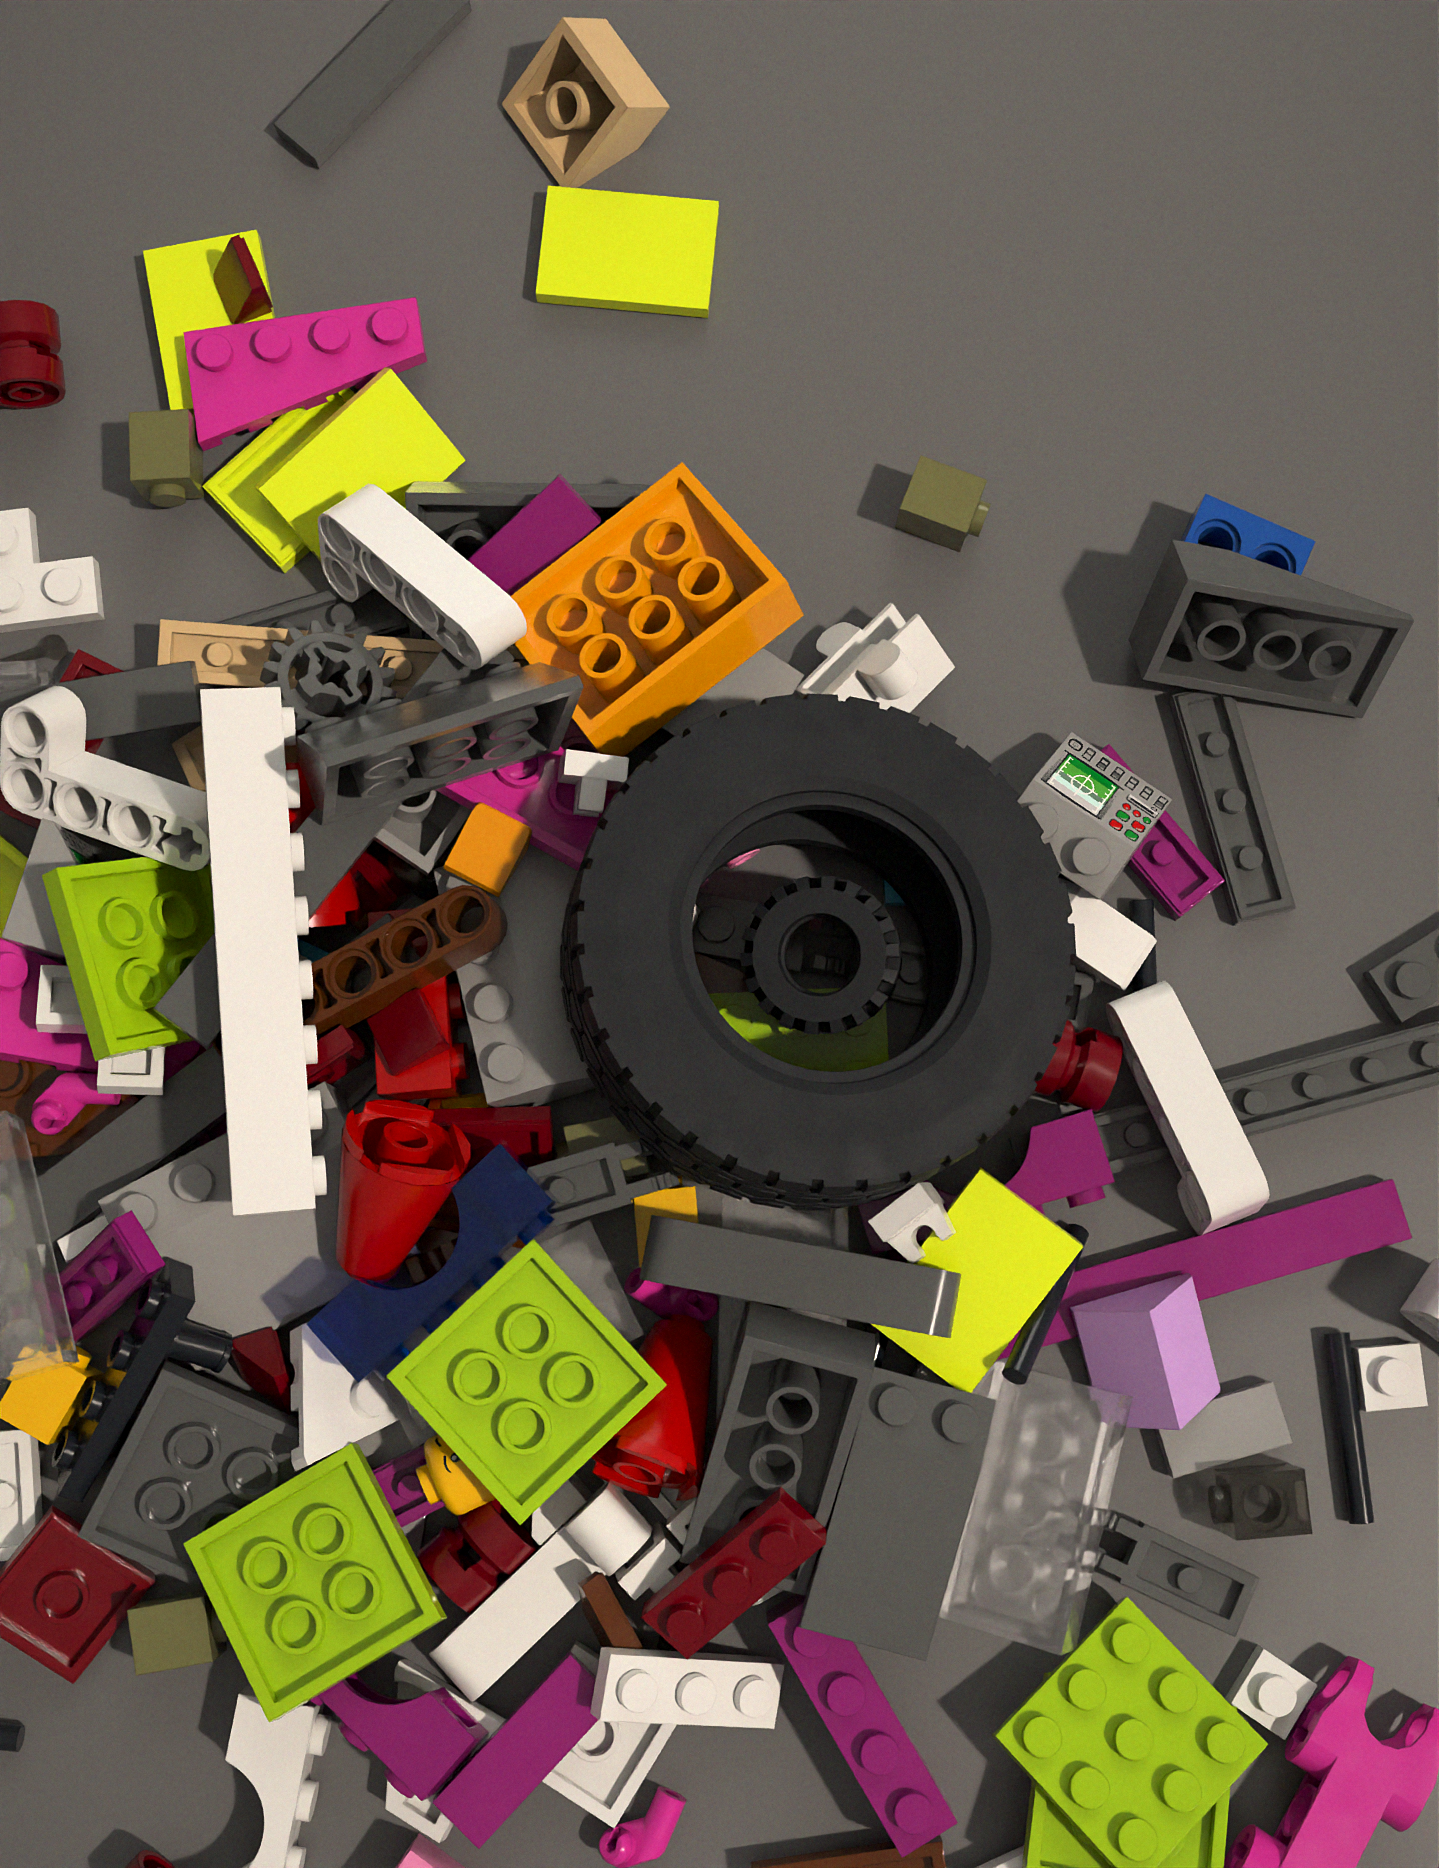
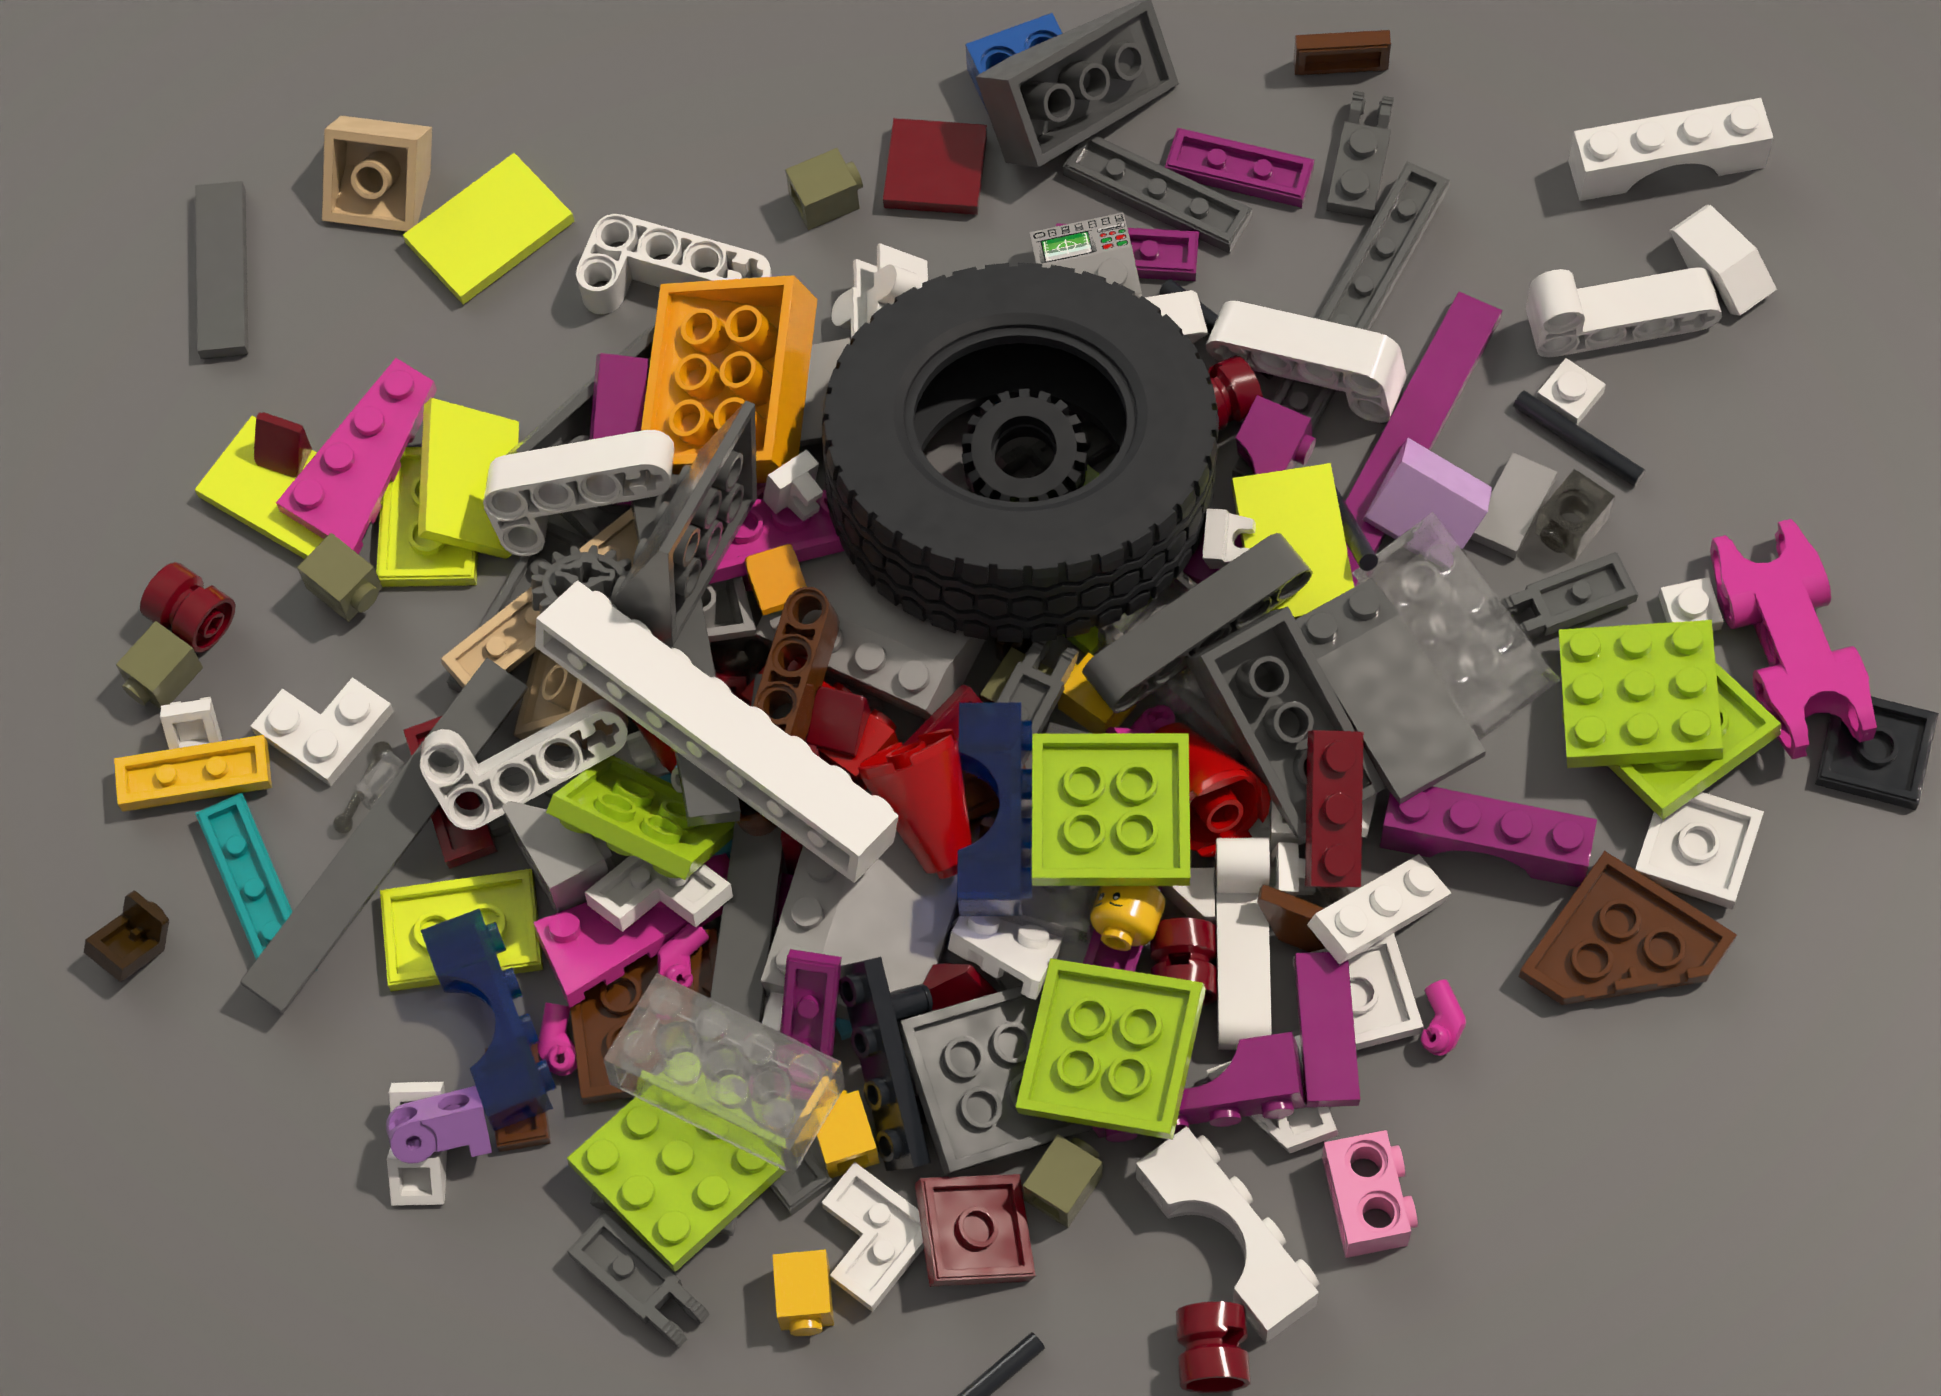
camera: 40 degrees left, 15 degrees down
(738, 456) = (636, 261): none -> white beam
(1064, 580) = (935, 166): none -> dark red tile
(1329, 855) = (1240, 167): none -> magenta tile

